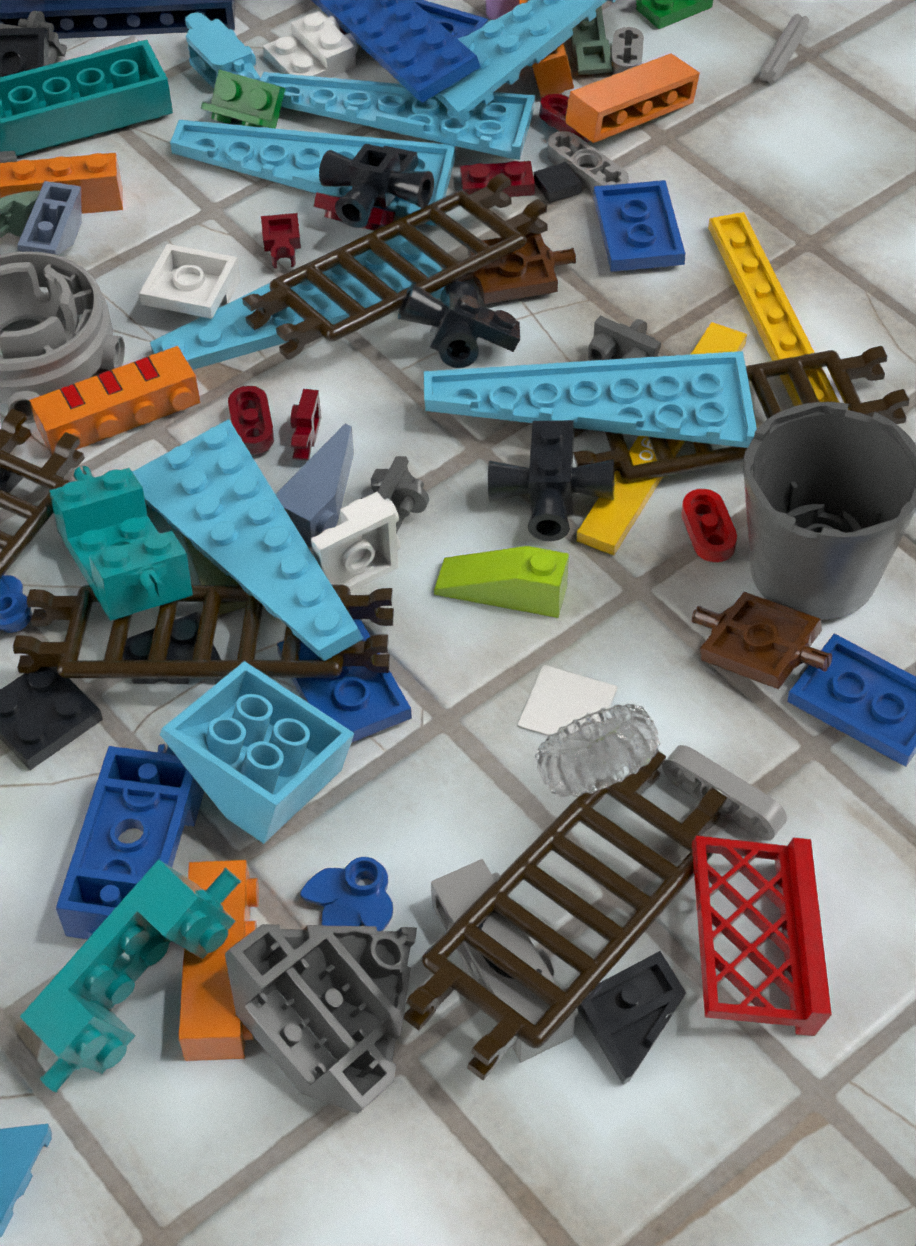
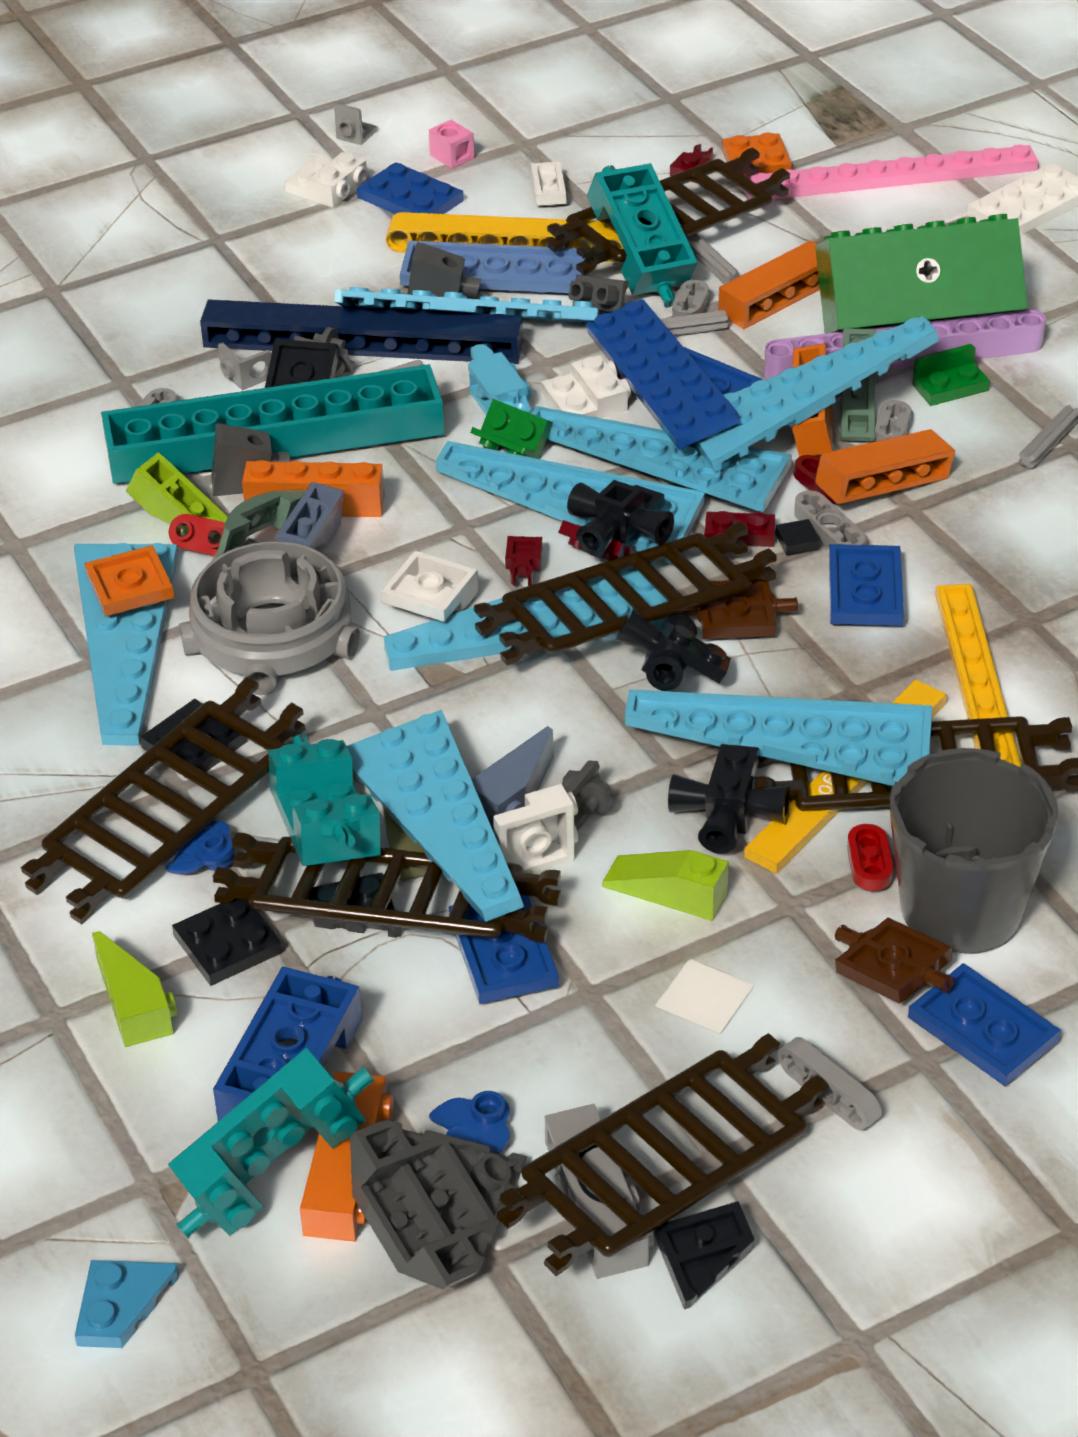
camera: 10 degrees right, 10 degrees down
(117, 399) = (345, 682): orange brick -> none
(252, 418) = (464, 713): dark red plate -> none
(257, 749) = (413, 987): medium azure slope -> none
(306, 421) = (513, 723): dark red plate -> none
(597, 750) = (717, 1028): clear gear -> none
(621, 341) = (823, 684): dark grey hips -> none
(799, 940) = (866, 1213): red fence -> none

